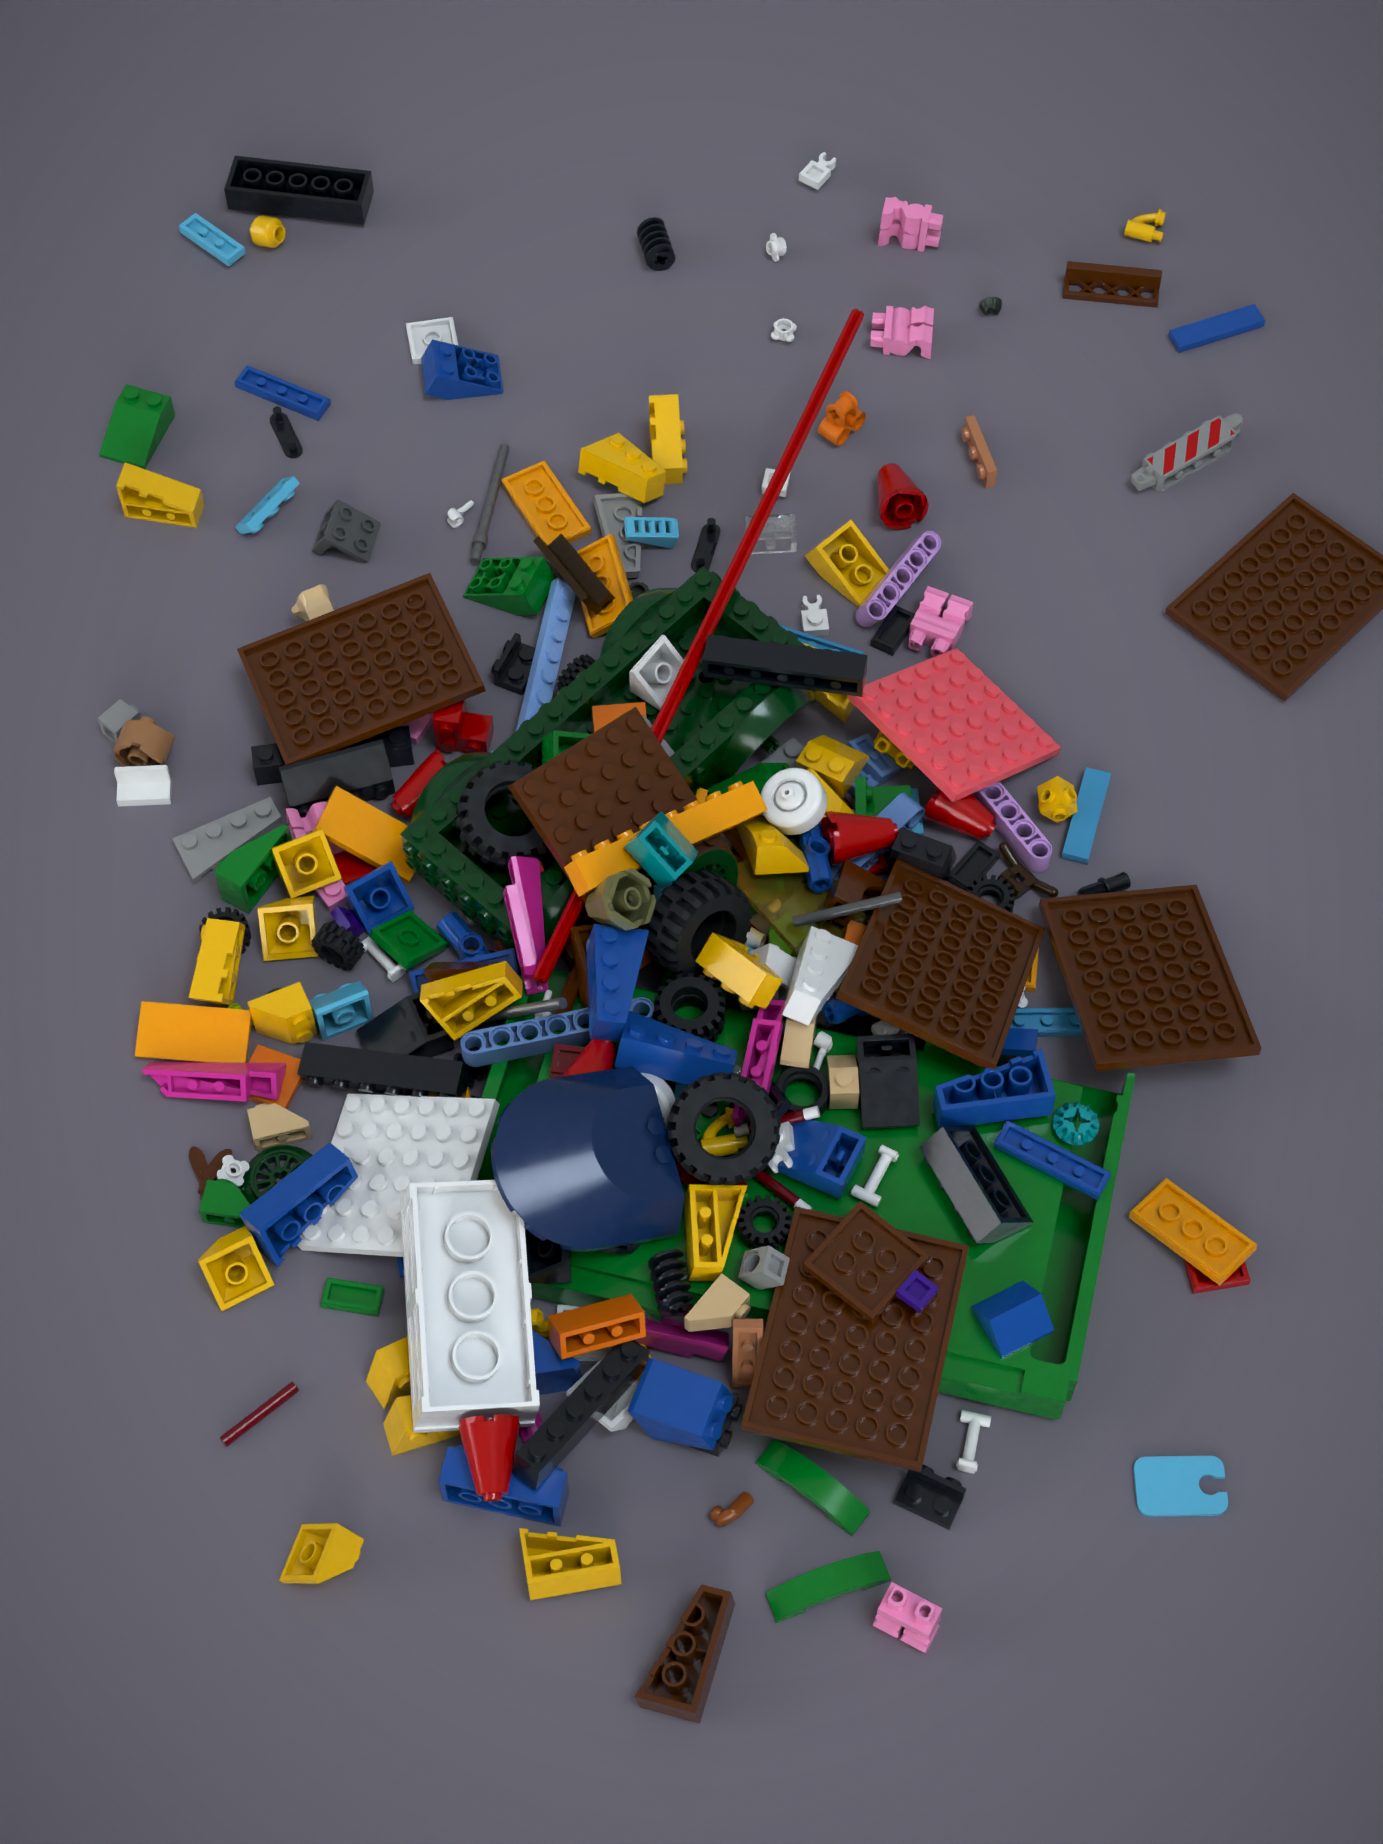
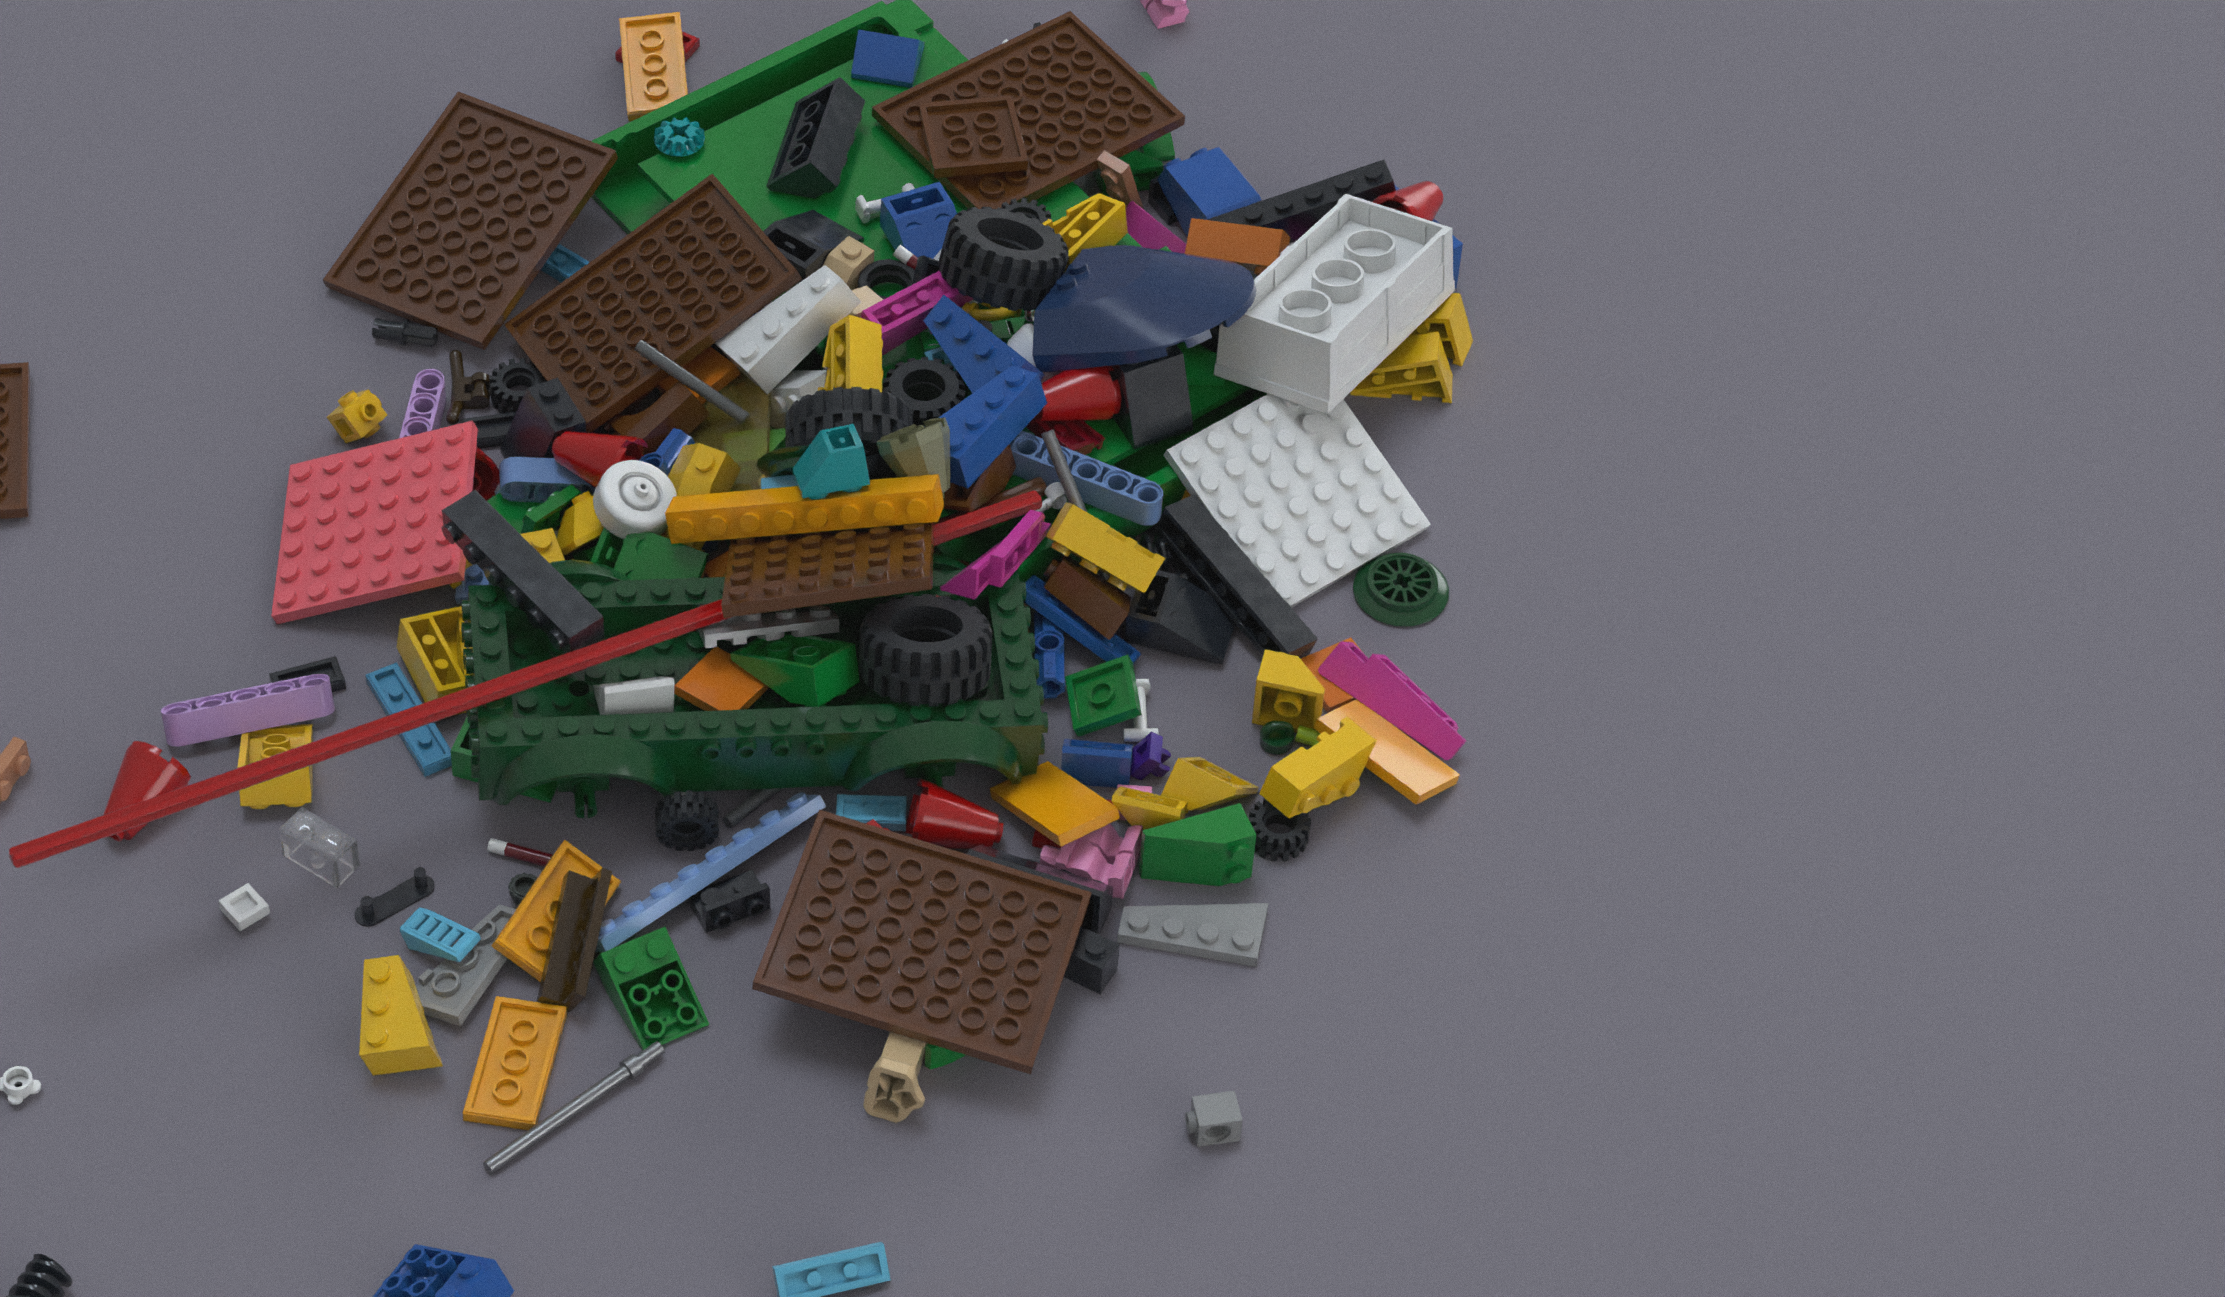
camera: 145 degrees left, 10 degrees down
(143, 743) = (1215, 1055): medium nougat brick -> none
(143, 785) = (1244, 1035): white panel -> none
(204, 1171) = (1464, 636): reddish brown piece -> none
(222, 1204) = (1472, 589): green slope -> none
(230, 1163) = (1442, 617): white plate -> none
(235, 1268) = (1499, 538): yellow slope -> none
(259, 1414) = (1566, 430): dark red bar -> none
(276, 1126) = (1371, 623): tan slope -> none
(298, 1201) = (1407, 524): blue wedge -> none
(321, 1553) = (1596, 297): yellow slope -> none
(338, 946) = (1180, 726): black tyre -> none
(341, 1010) = (1224, 670): medium azure slope -> none
(347, 531) = (777, 1178): dark grey bracket -> none
(352, 1297) = (1412, 462): green tile -> none
(455, 516) = (630, 1118): white hand -> none
(568, 1564) = (1405, 161): yellow wedge -> none
(665, 436) = (310, 1025): yellow wedge -> none
(668, 1283) = (1148, 225): black piece -> none
(687, 1666) = (1352, 65): reddish brown wedge -> none
(718, 1306) = (1139, 196): tan slope -> none
(734, 1511) = (1230, 133): dark orange arm -> none
(764, 1267) = (1048, 189): light grey brick -> none
(814, 618) = (377, 751): white plate -> none
(826, 1584) = (1201, 48): green slope -> none
(841, 419) = (94, 915): orange piece -> none
(917, 1291) = (956, 85): dark purple tile -> none
(938, 631) = (260, 643): bright pink hips -> none
(997, 1094) = (751, 180): blue wedge -> none
(1052, 1160) = (729, 128): blue tile -> none
(1085, 821) = (313, 412): dark azure tile -> none

